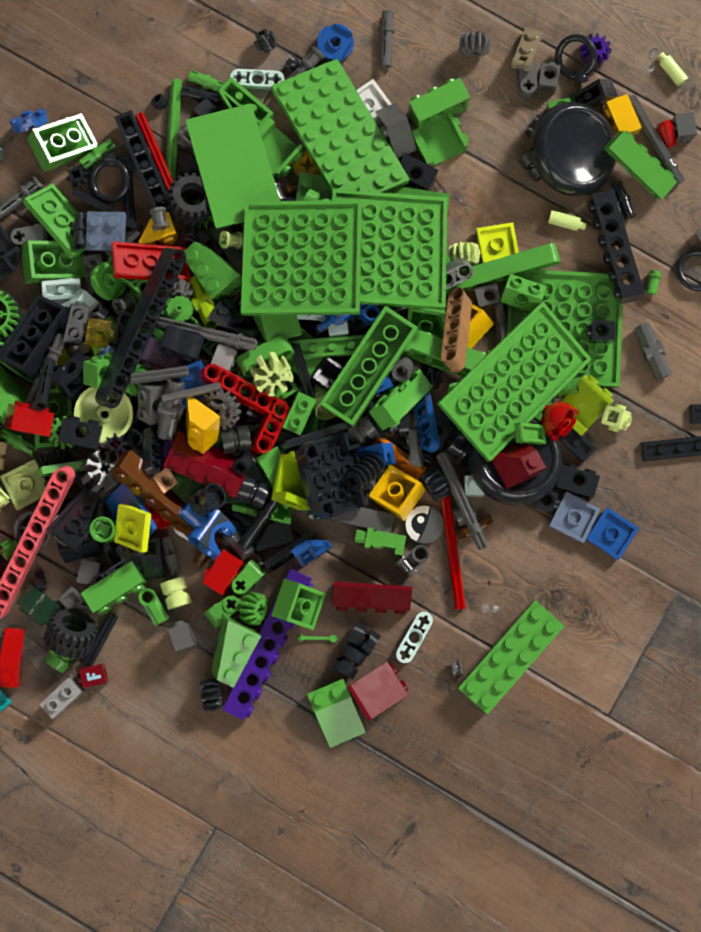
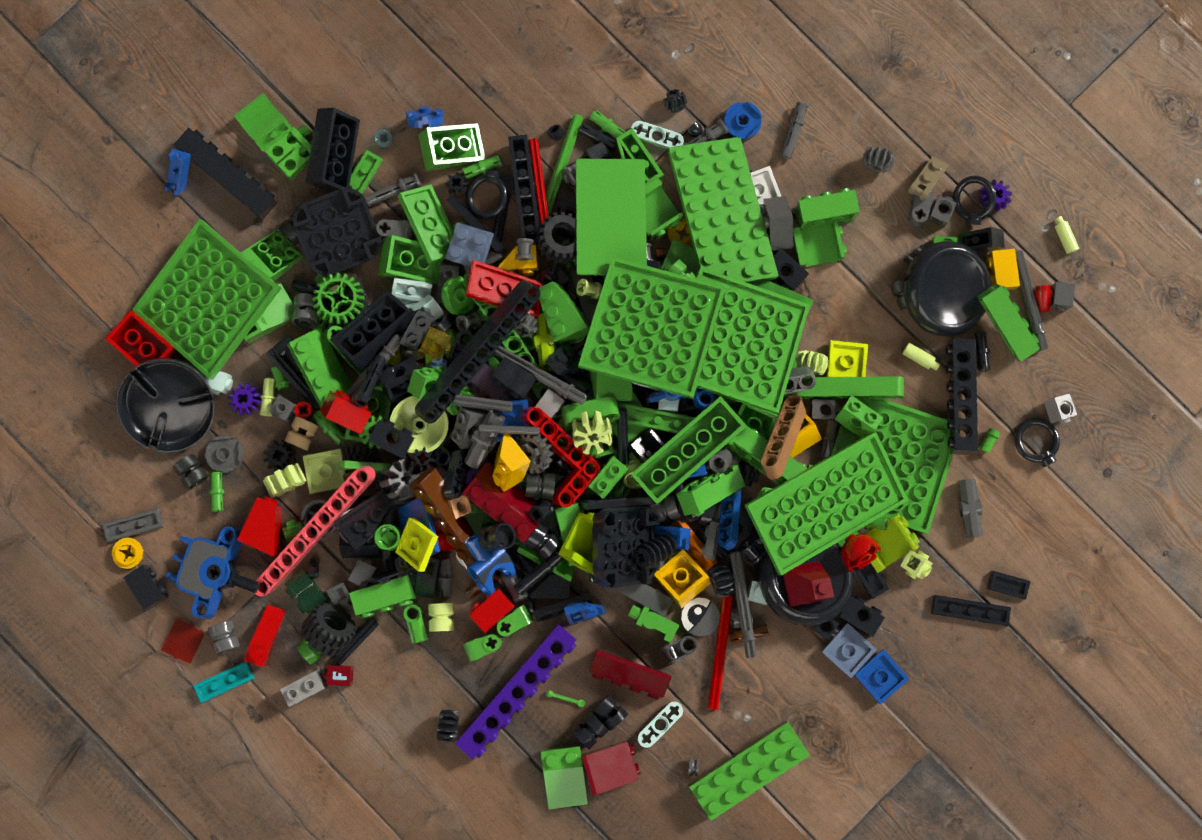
camera: 15 degrees right, 0 degrees up
(79, 231) = (444, 238): black pin -> none
(179, 308) = (520, 343): bright green piece -> none
(182, 636) = (435, 661): dark grey brick -> none
(233, 650) = (481, 689): bright green wedge -> none
(253, 608) = (511, 653): bright green gear -> none
(298, 604) = (556, 662): bright green slope -> none
(529, 433) = (827, 558): bright green tile -> none
(607, 326) = (933, 476): black brick -> none

